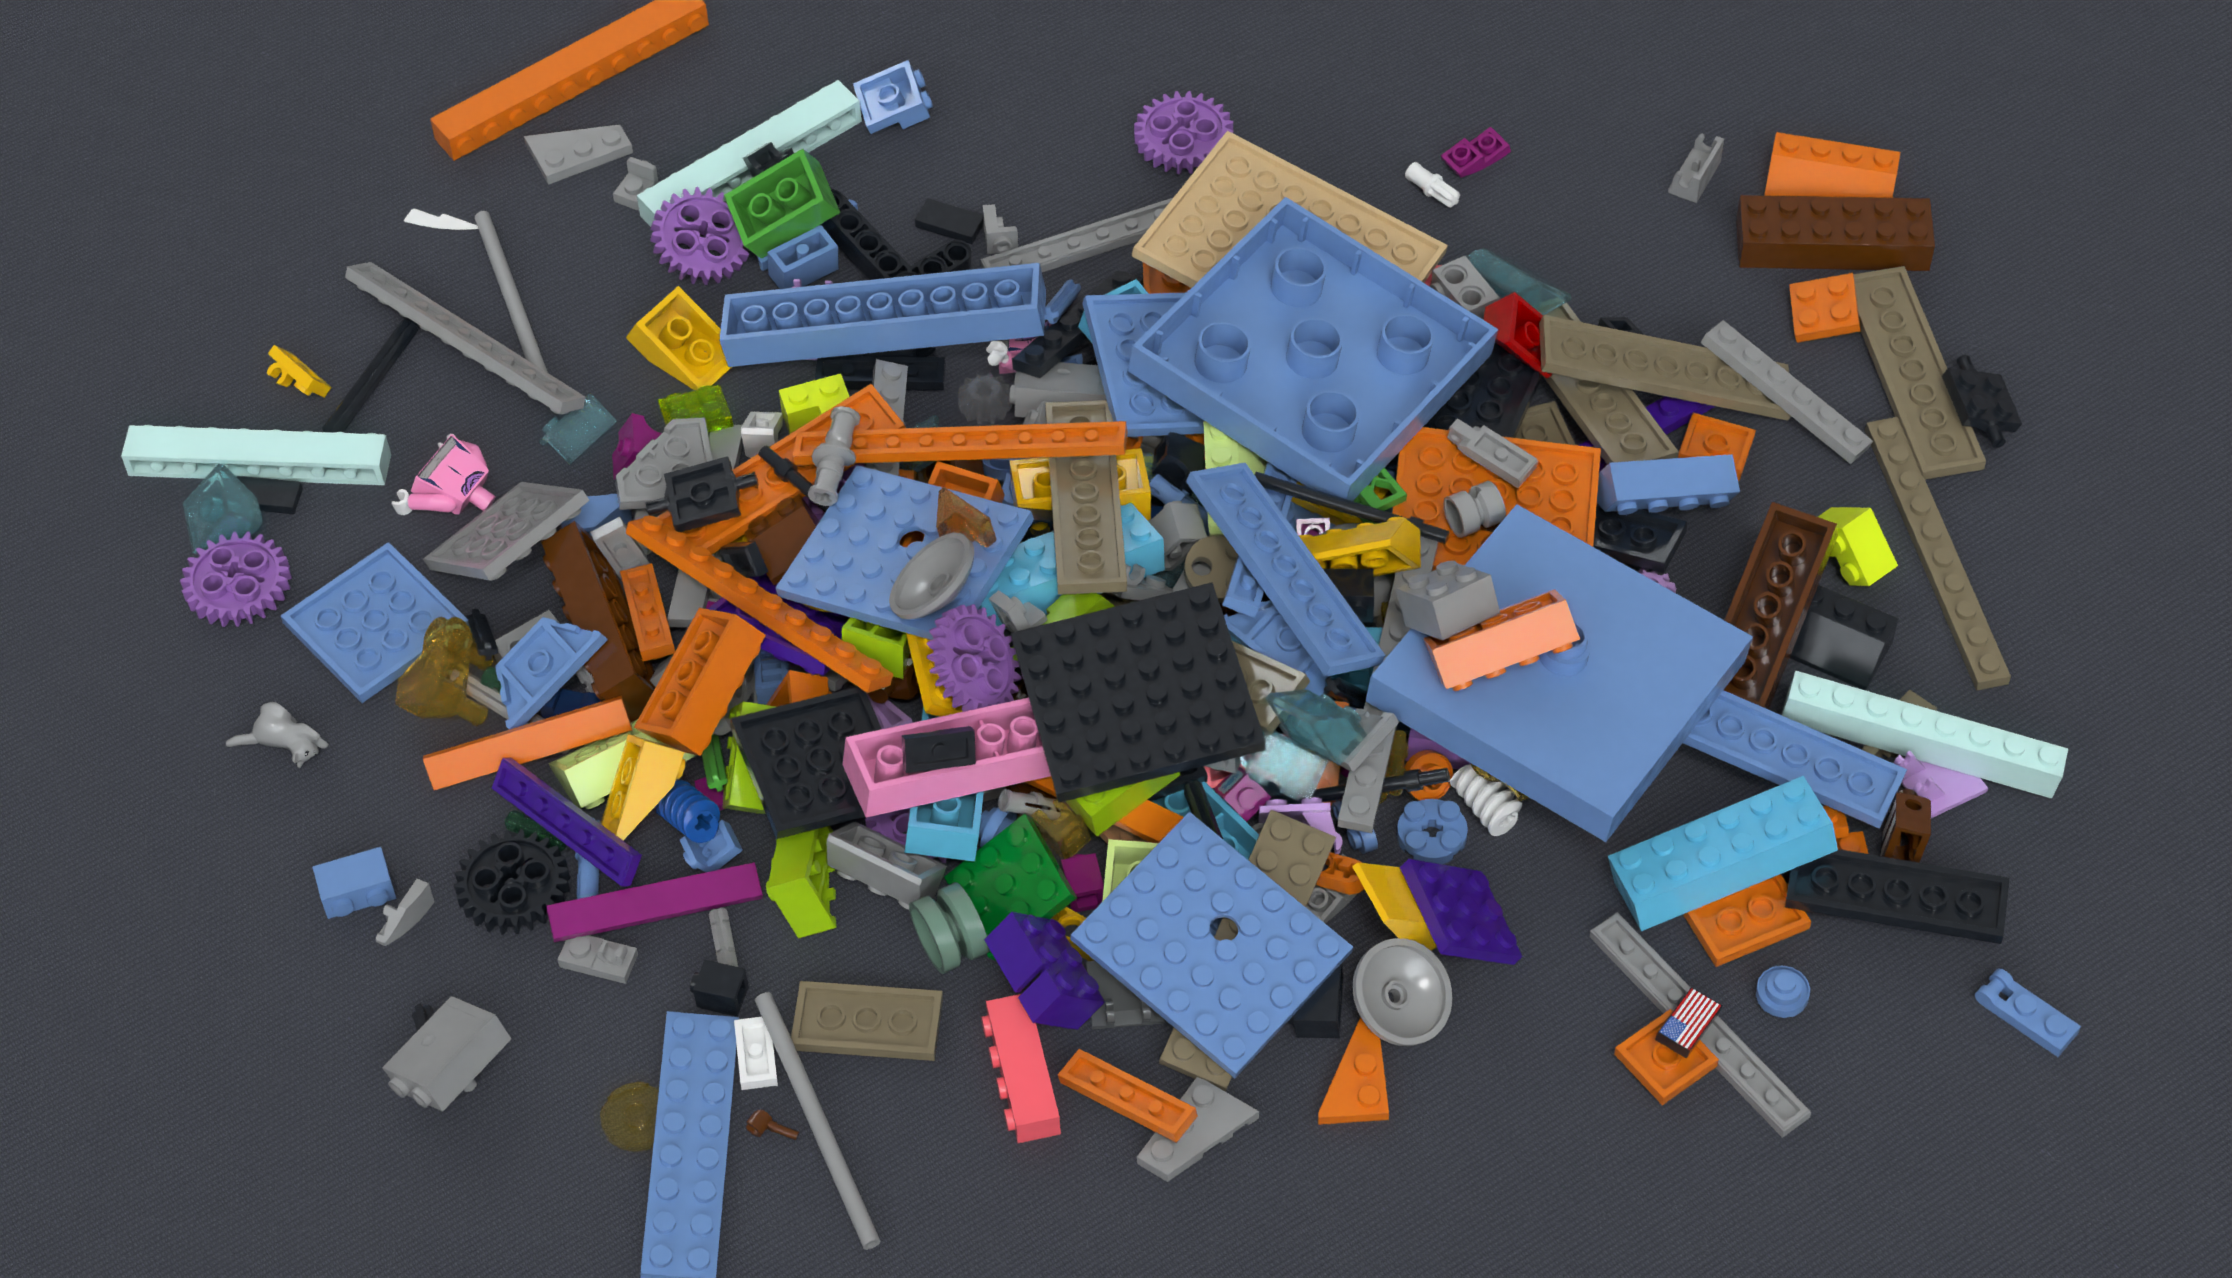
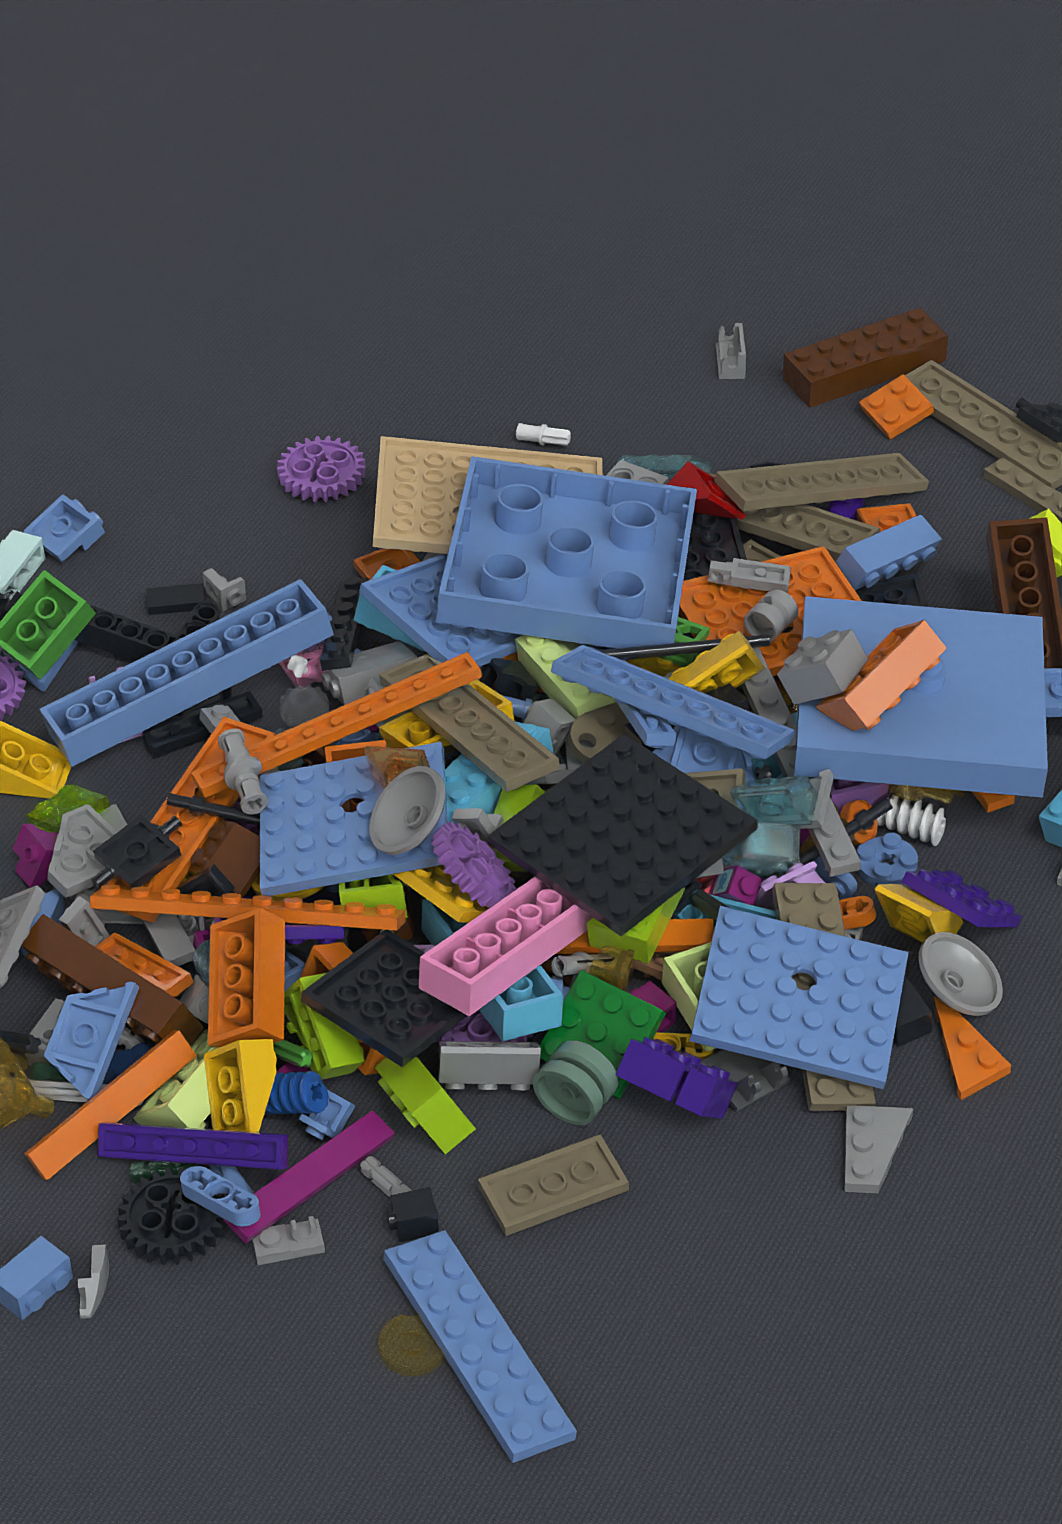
camera: 30 degrees left, 10 degrees down
(445, 1052) = (220, 1363): light grey piece -> none
(548, 898) = (202, 1184): none -> medium blue beam
(755, 1054) = (480, 1249): white plate -> none
(760, 430) = (138, 801): white slope -> none
(761, 1120) = (523, 1298): reddish brown hand -> none
(803, 258) = (81, 660): medium blue brick -> none
(811, 399) = (165, 764): neon yellow brick -> none
(817, 1121) = (572, 1274): light grey piece -> none
(938, 749) = (505, 932): black plate -> none
(1022, 1069) = (707, 1161): coral brick -> none
(1081, 242) = (318, 554): light grey tile -> none
(1127, 1095) = (807, 1140): orange plate -> none
(1477, 154) = (558, 403): magenta slope -> none
(1787, 392) = (917, 468): light grey plate -> none
(1830, 169) = (827, 316): orange slope -> none

